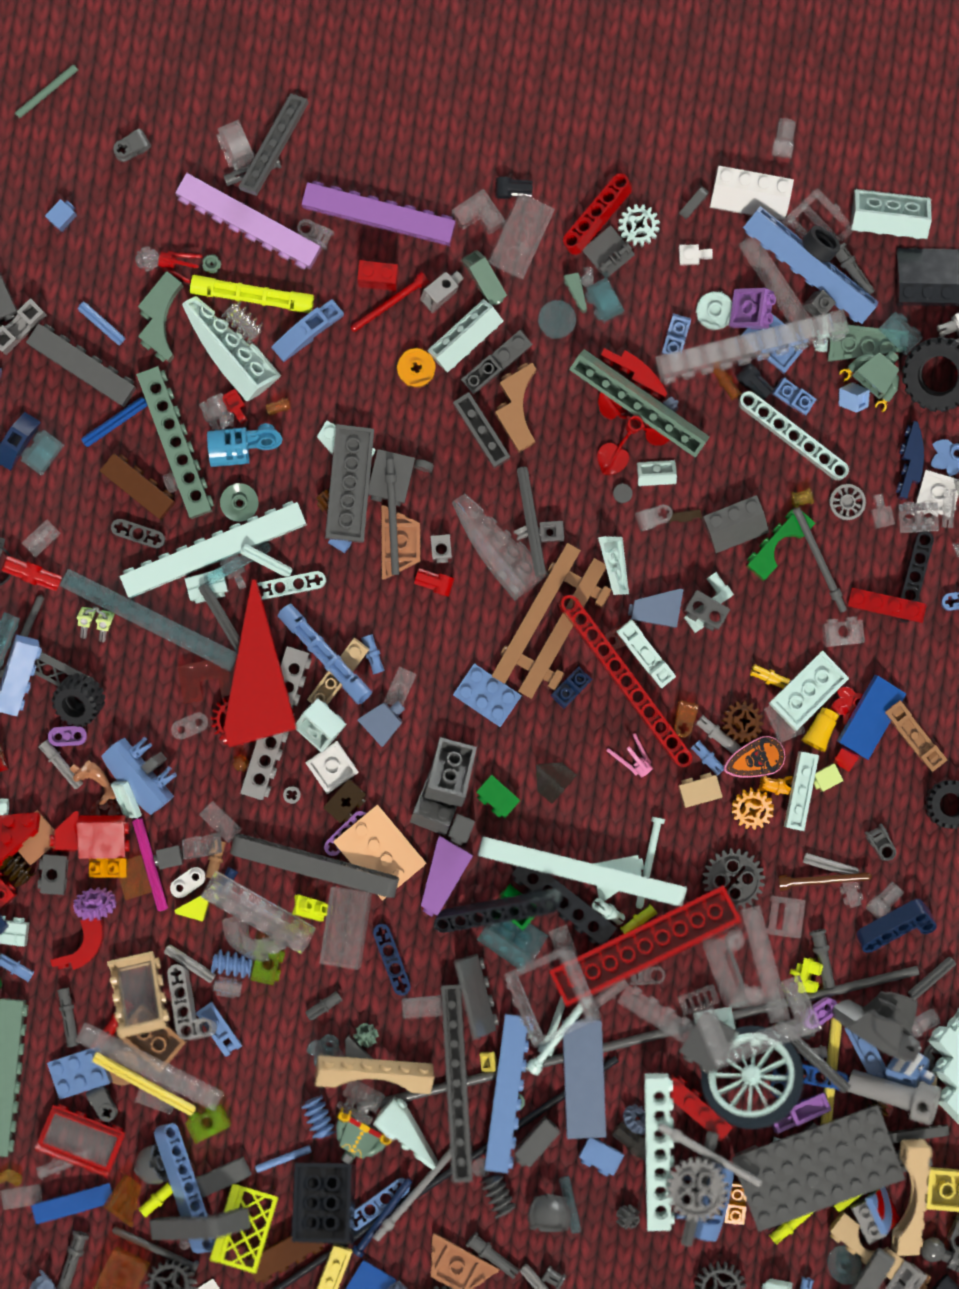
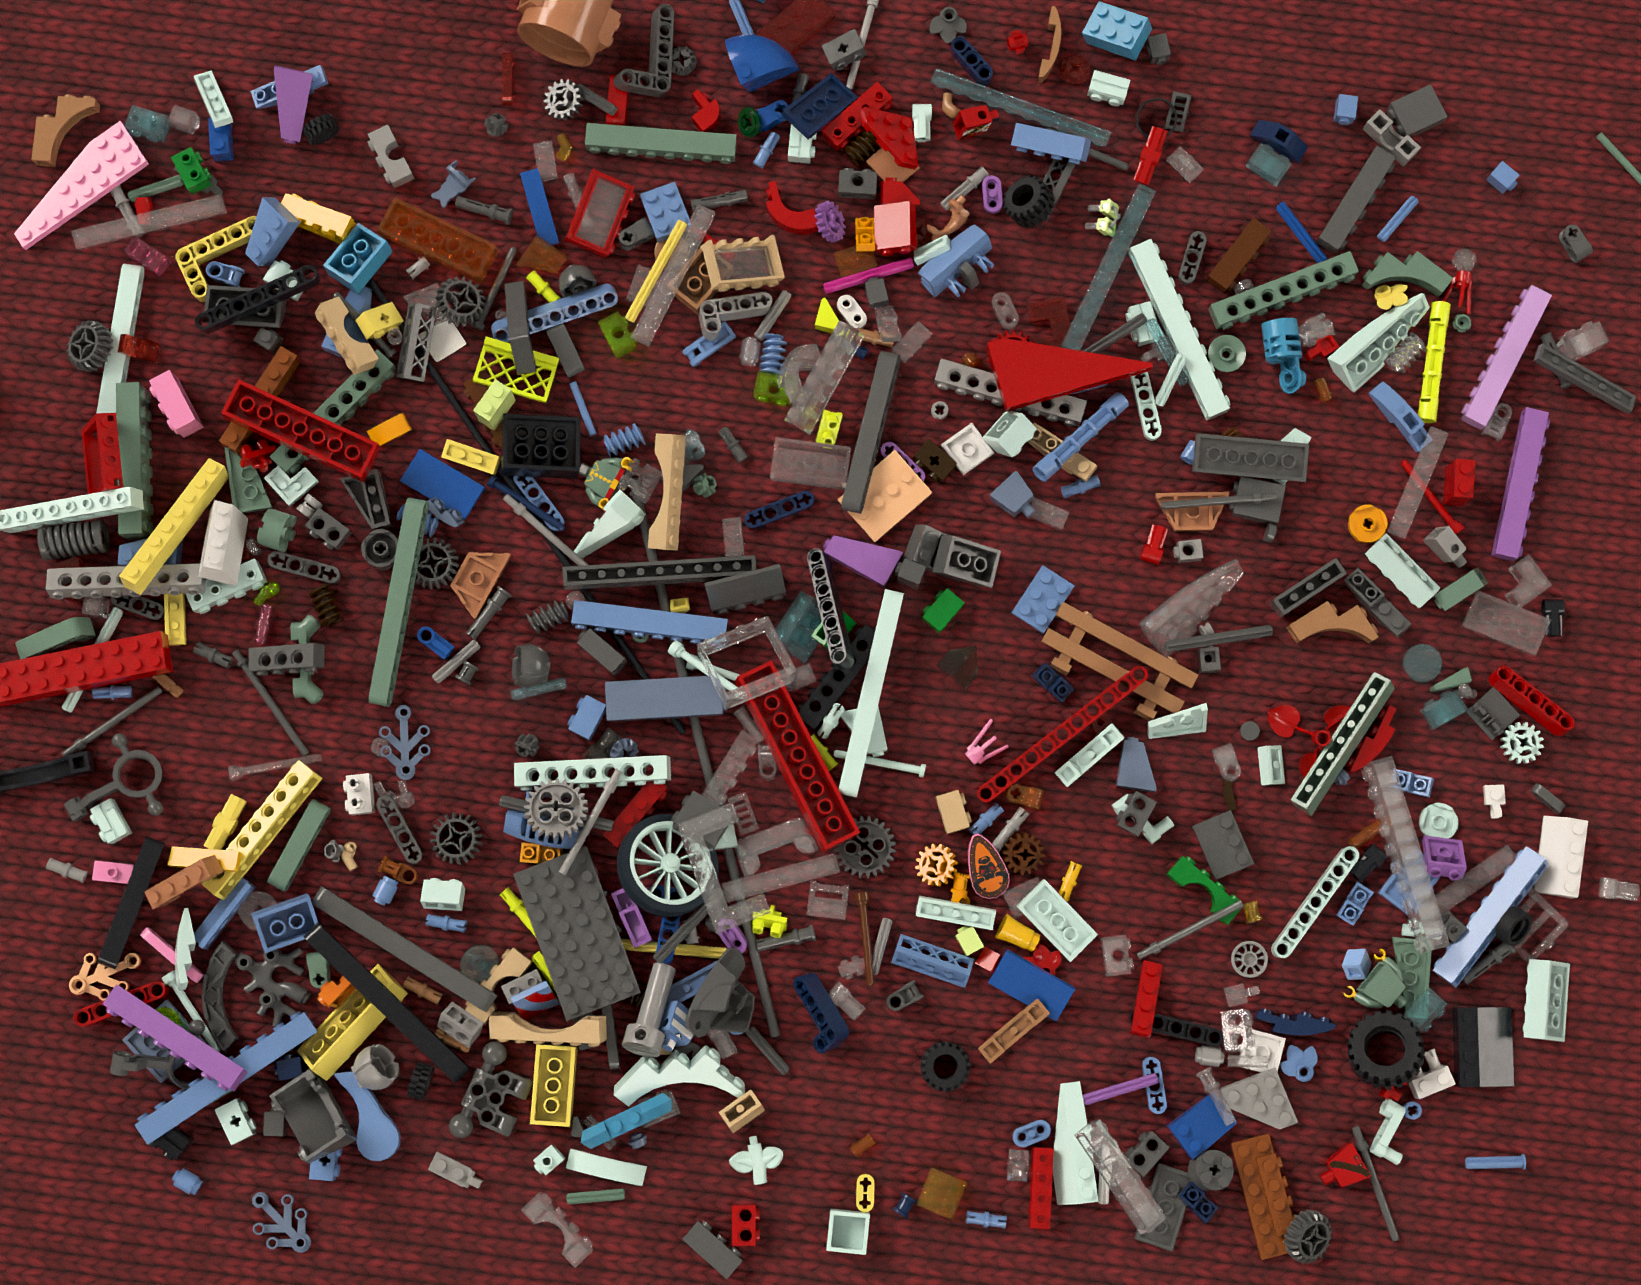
camera: 95 degrees right, 5 degrees down
(183, 334) = (1388, 296): none -> light yellow plate
(284, 1251) = (494, 404): none -> yellowish green brick
(375, 316) = (1417, 482): none -> clear tile
(849, 815) = (932, 964): none -> medium blue fence
(942, 545) = (1209, 1056): none -> light grey brick

